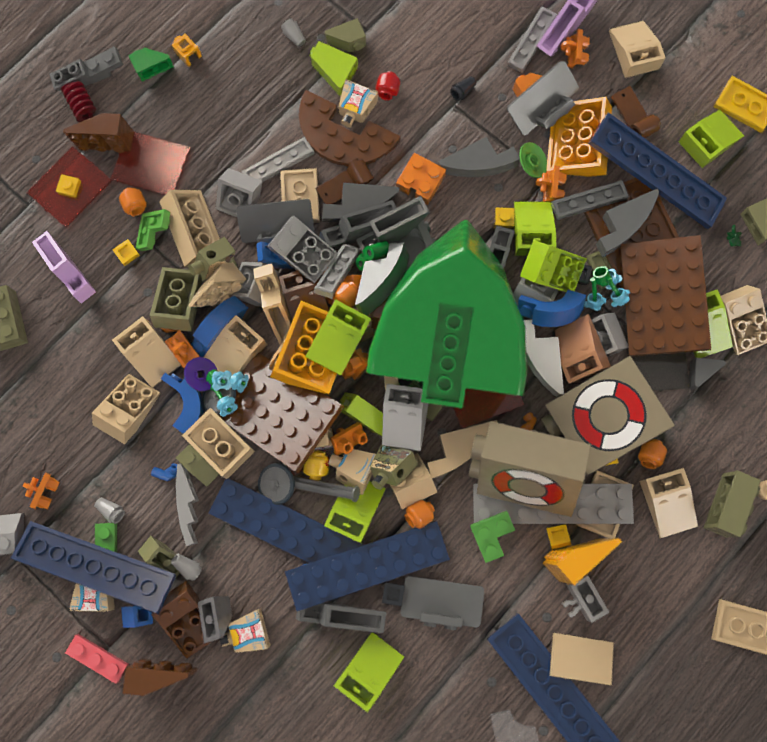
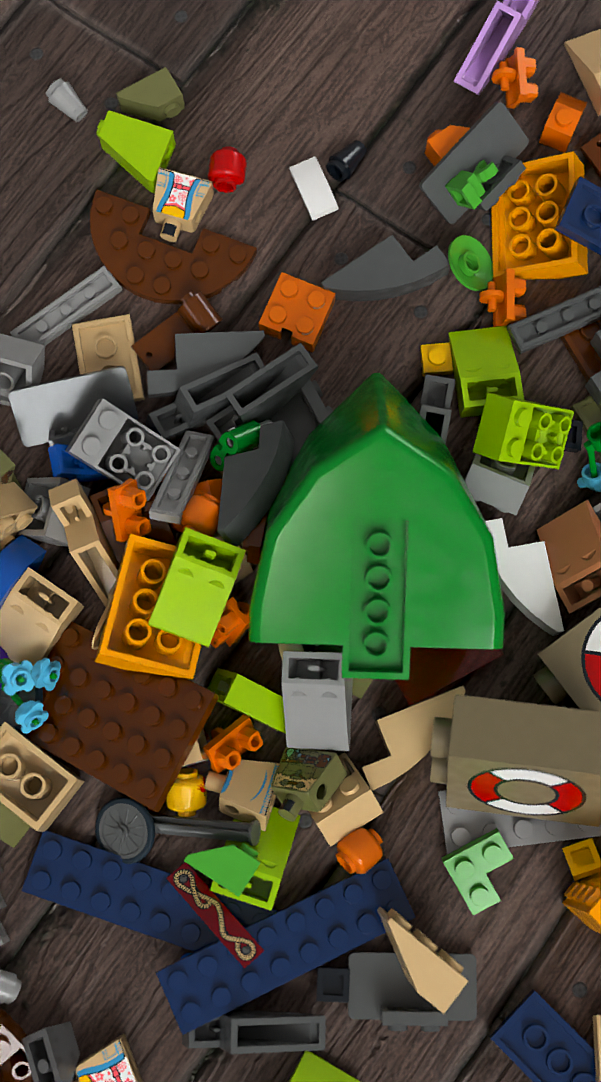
camera: 10 degrees left, 0 degrees up
(300, 286) = (125, 508): none -> orange hips
(325, 541) = (215, 915): none -> sticker
(336, 511) = (227, 865): none -> bright green slope
(440, 103) = (313, 188): none -> white slope
(453, 592) = (431, 973): none -> tan slope
(528, 44) = (444, 70): light grey tile -> none
(531, 421) = (514, 688): orange arm -> none
(537, 111) = (467, 186): none -> bright green piece
(553, 313) = (532, 504): blue arch -> none
(601, 79) = (562, 122): none -> orange slope

